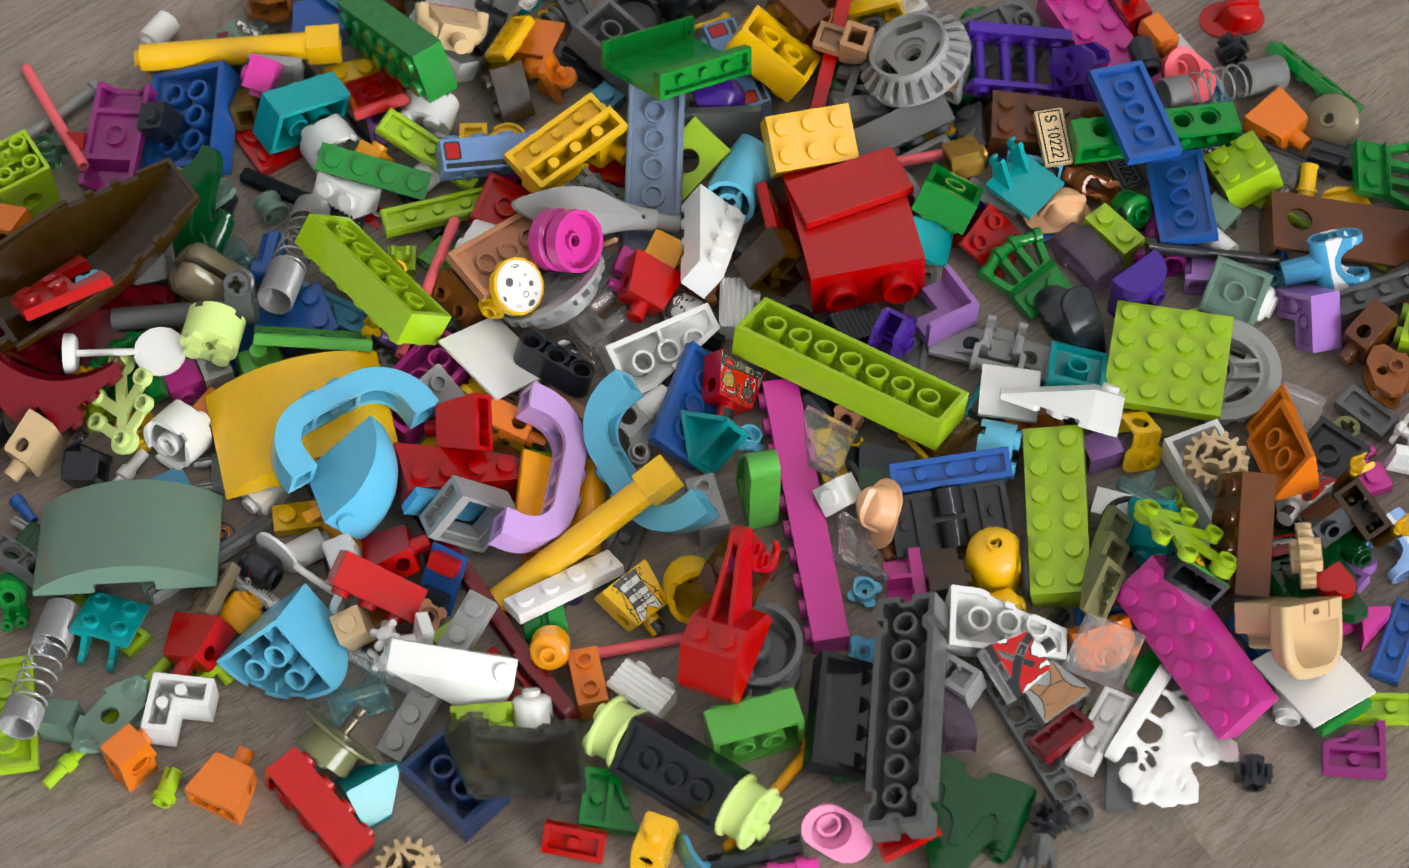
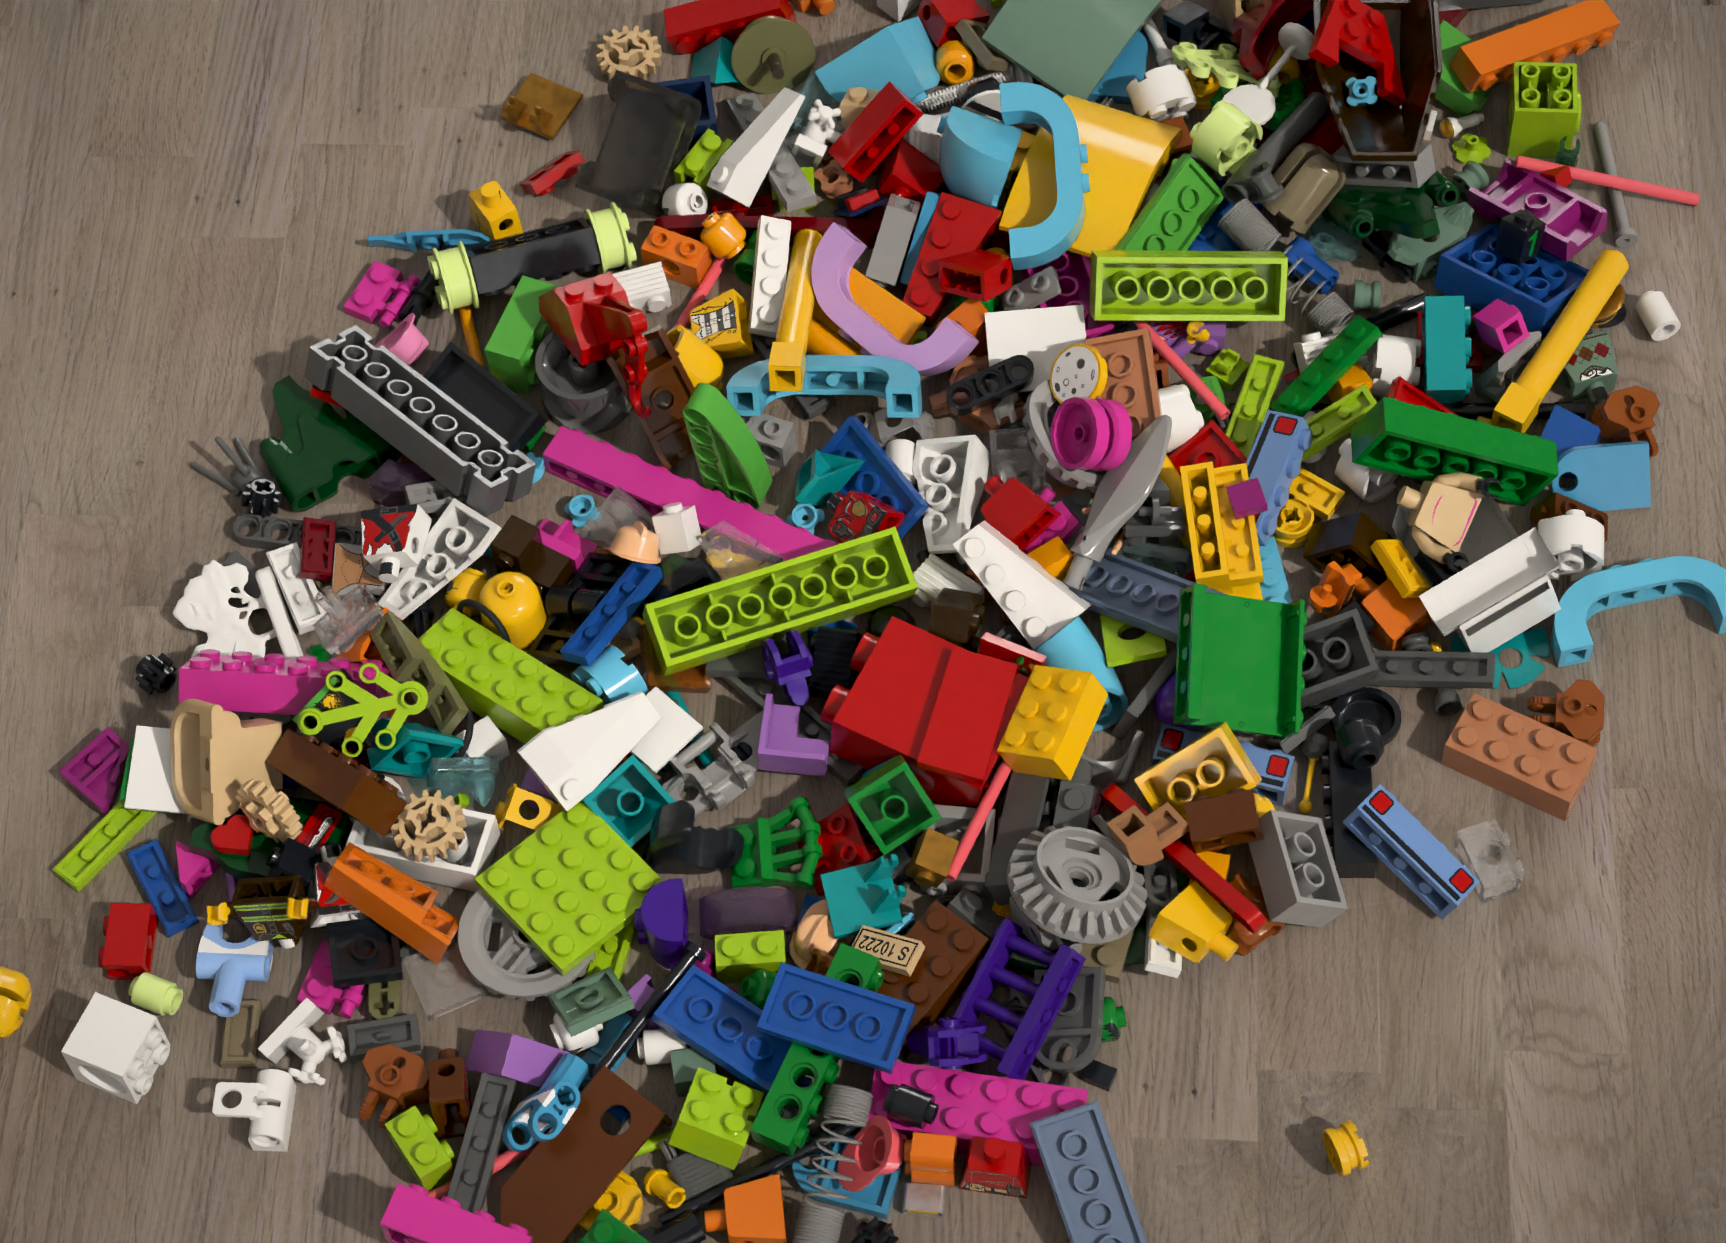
camera: 130 degrees right, 0 degrees up
(537, 131) = (1246, 498): none -> magenta tile
(605, 804) = (558, 206): green wing -> none

